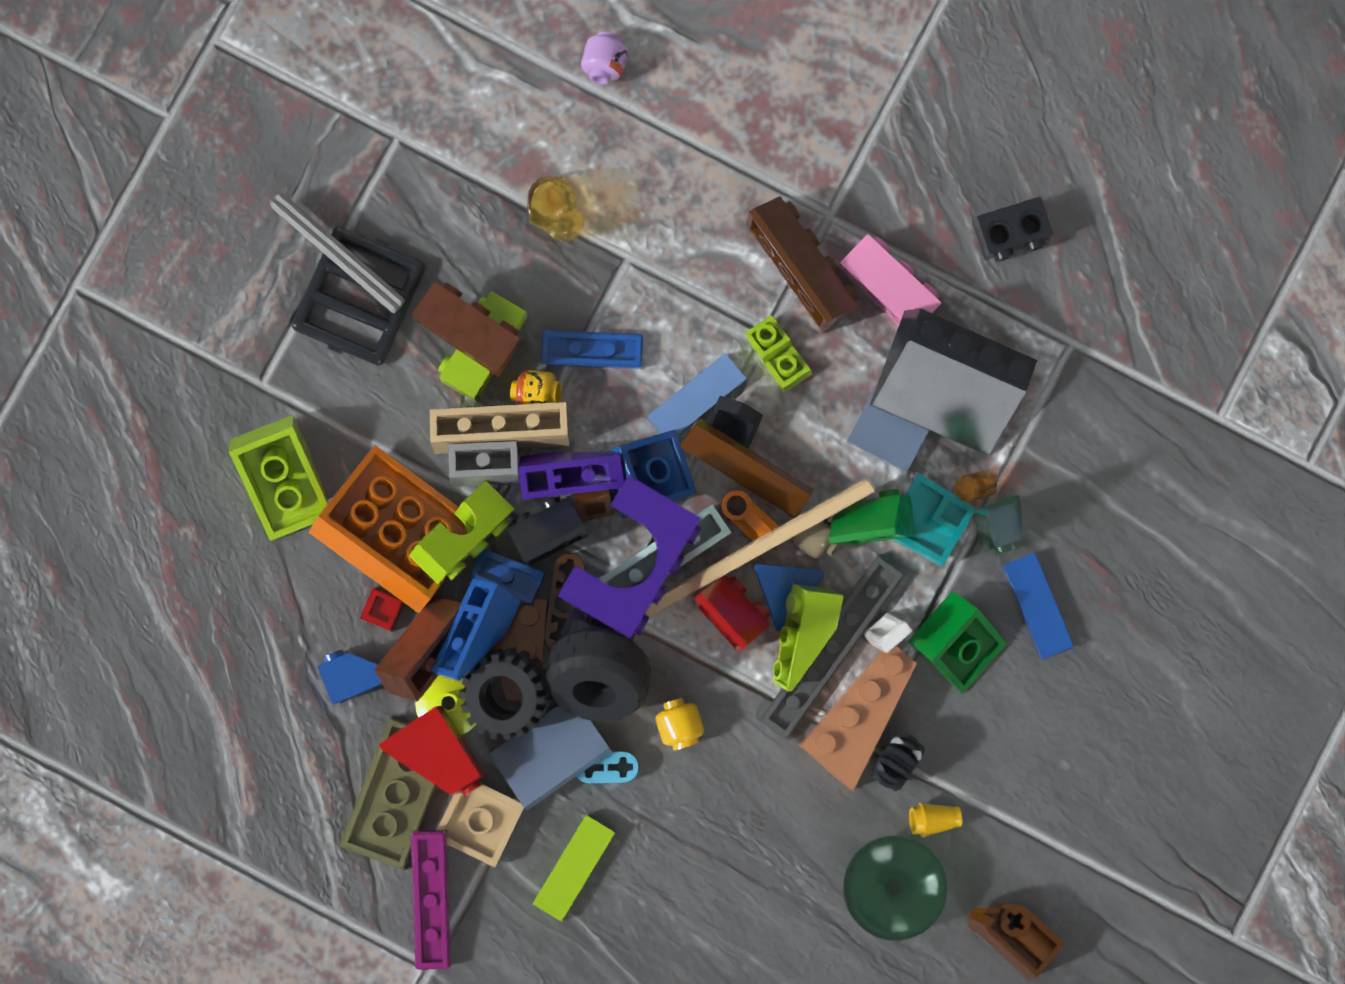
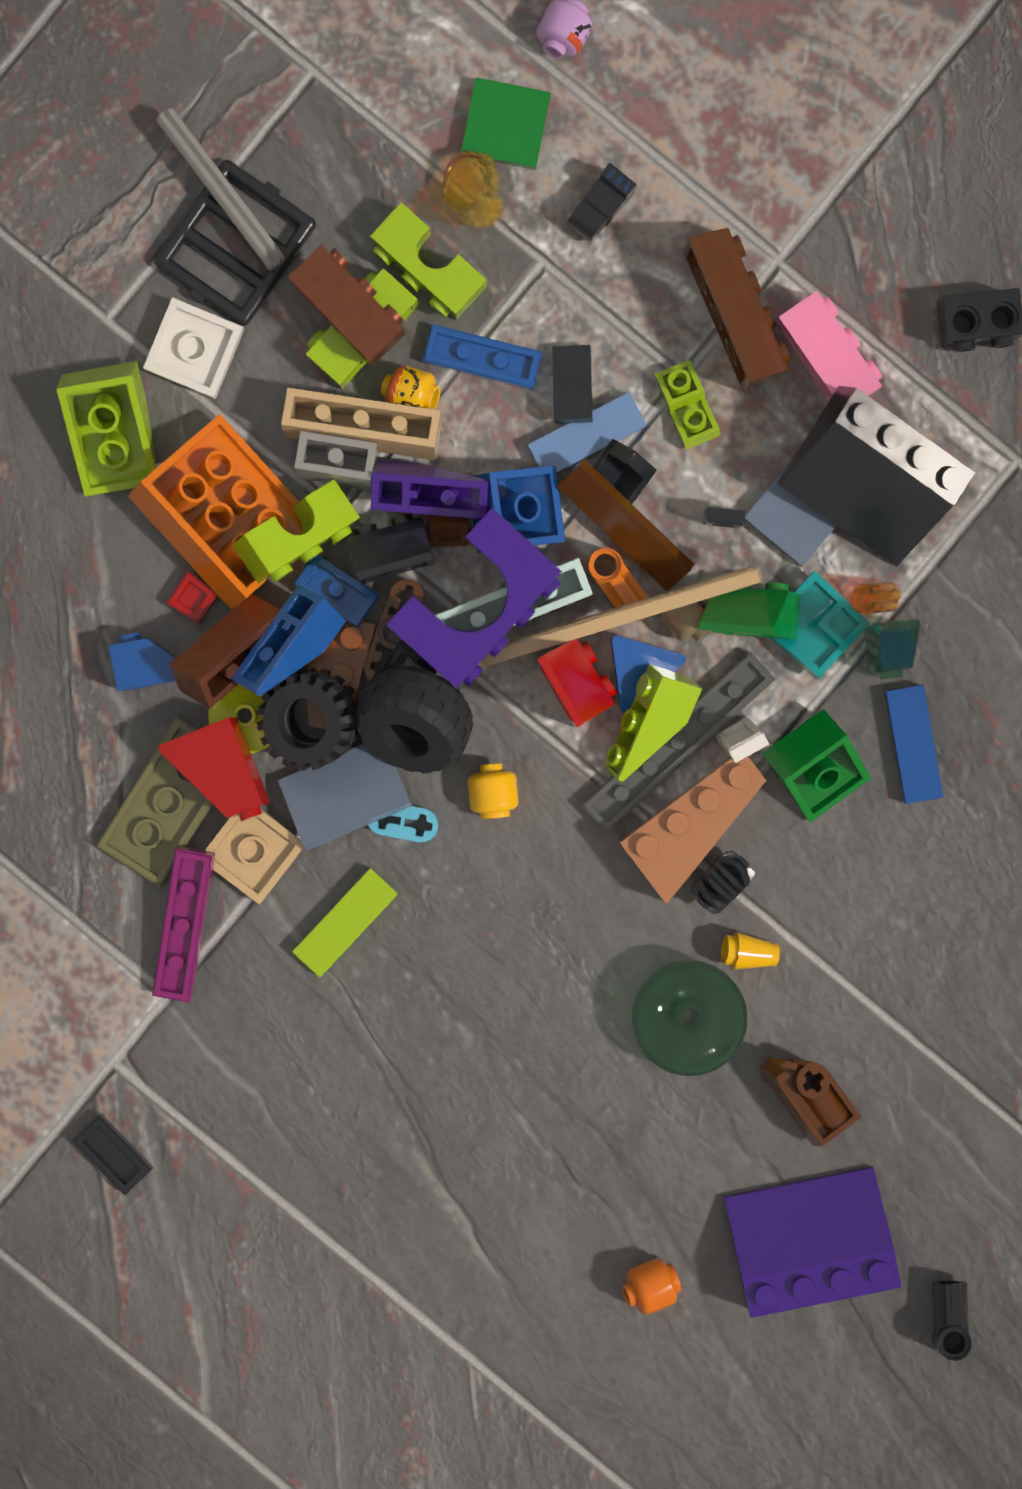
camera: 15 degrees right, 5 degrees up
(340, 393) = (193, 348): none -> white plate
(551, 296) = (450, 287): none -> lime arch
(571, 146) = (506, 122): none -> green tile
(667, 197) = (602, 202): none -> black leg
(675, 356) = (572, 384): none -> black tile
(830, 443) = (724, 517): none -> black tile

